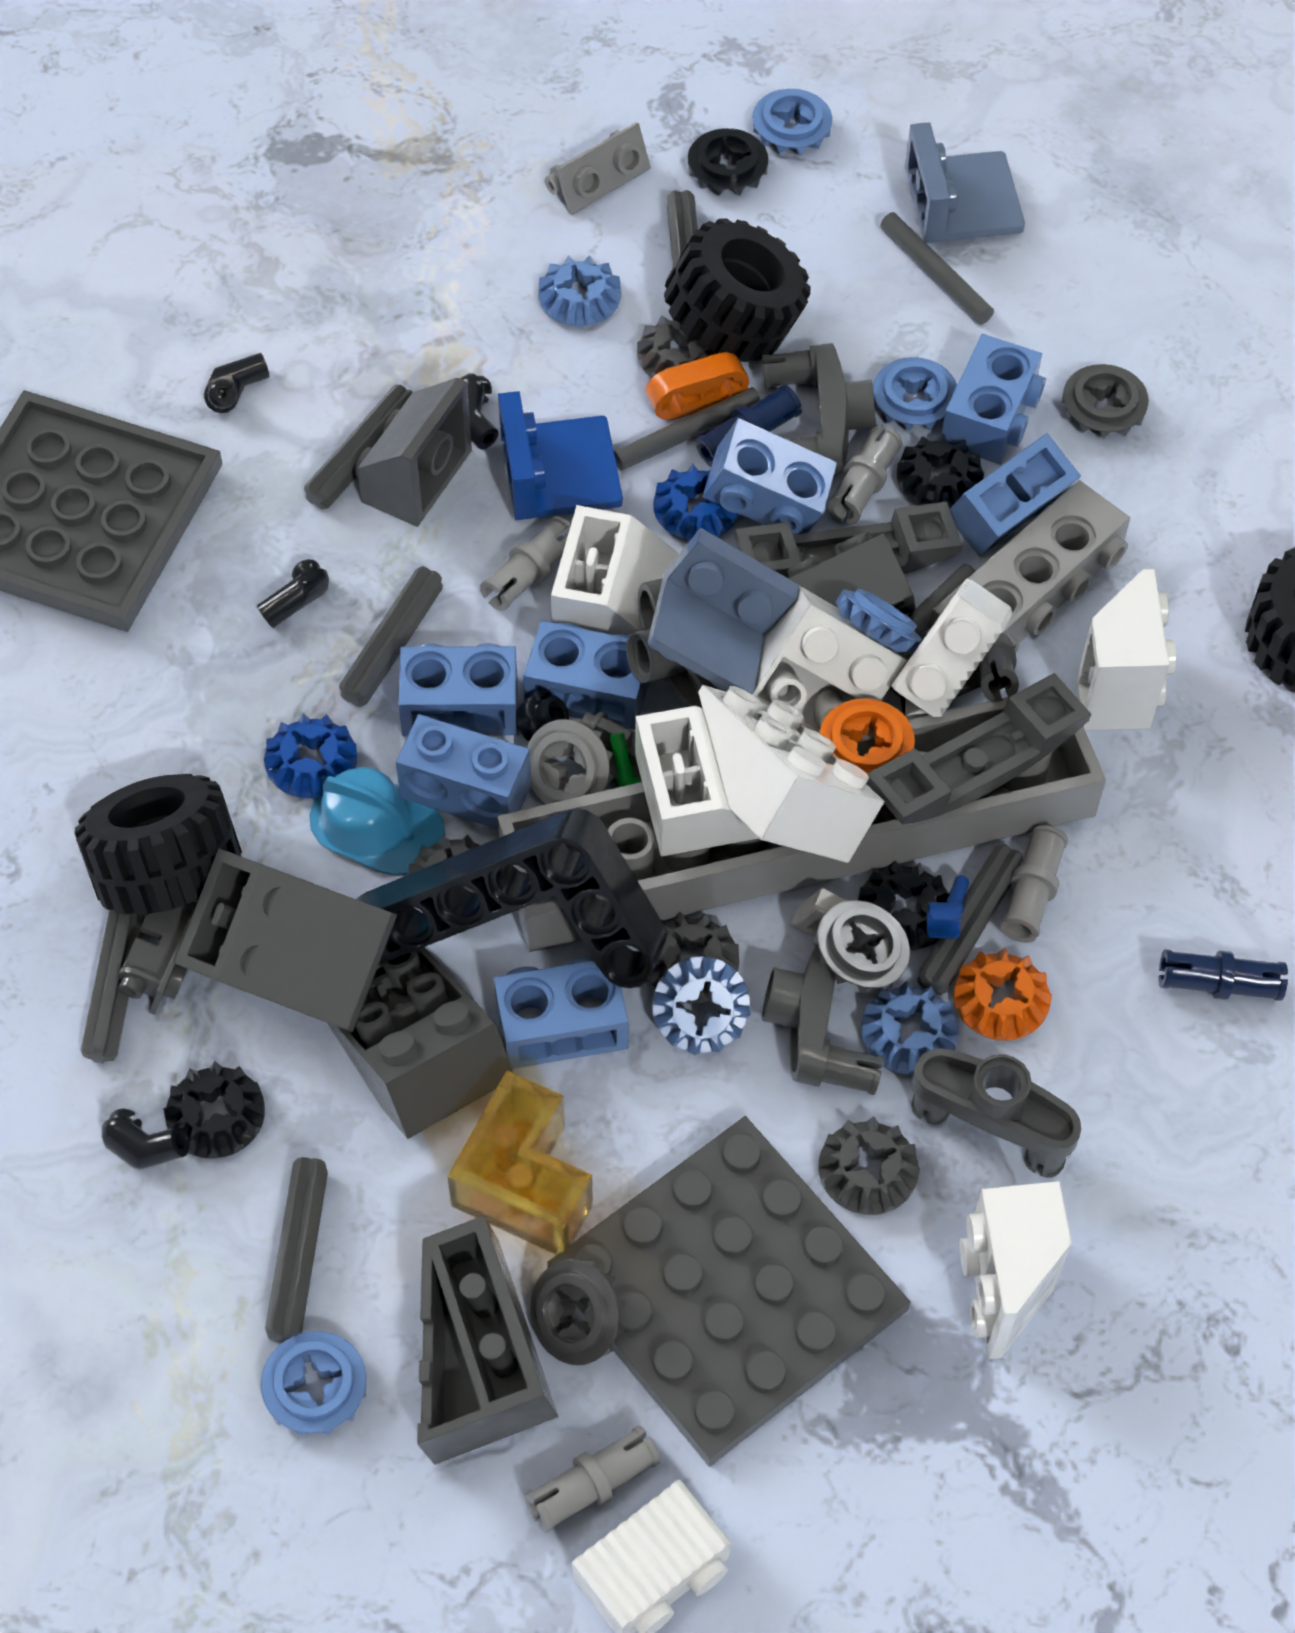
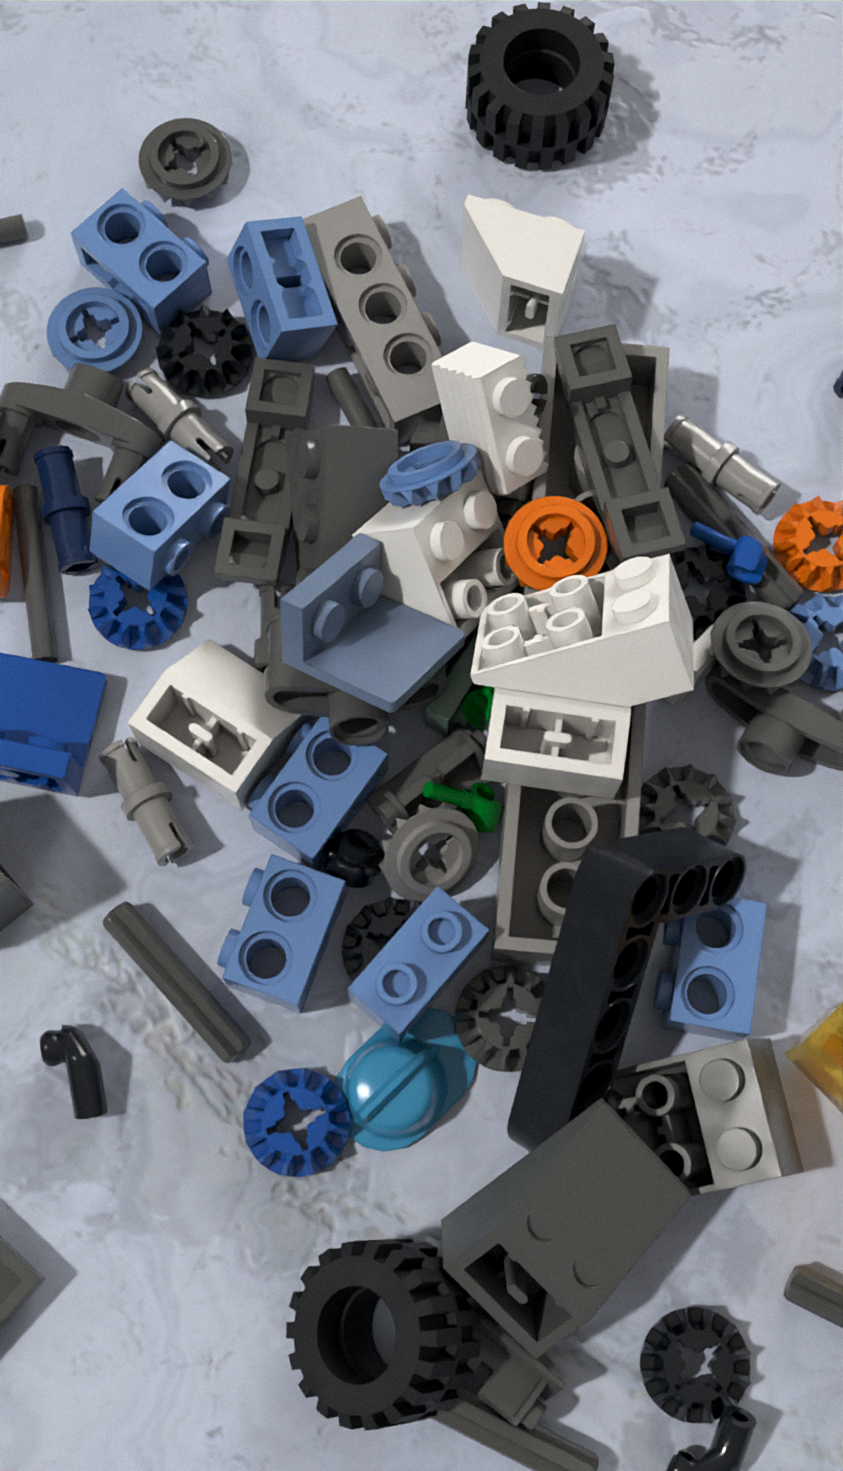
camera: 70 degrees left, 15 degrees up
(684, 983) = (737, 830): medium blue gear -> none

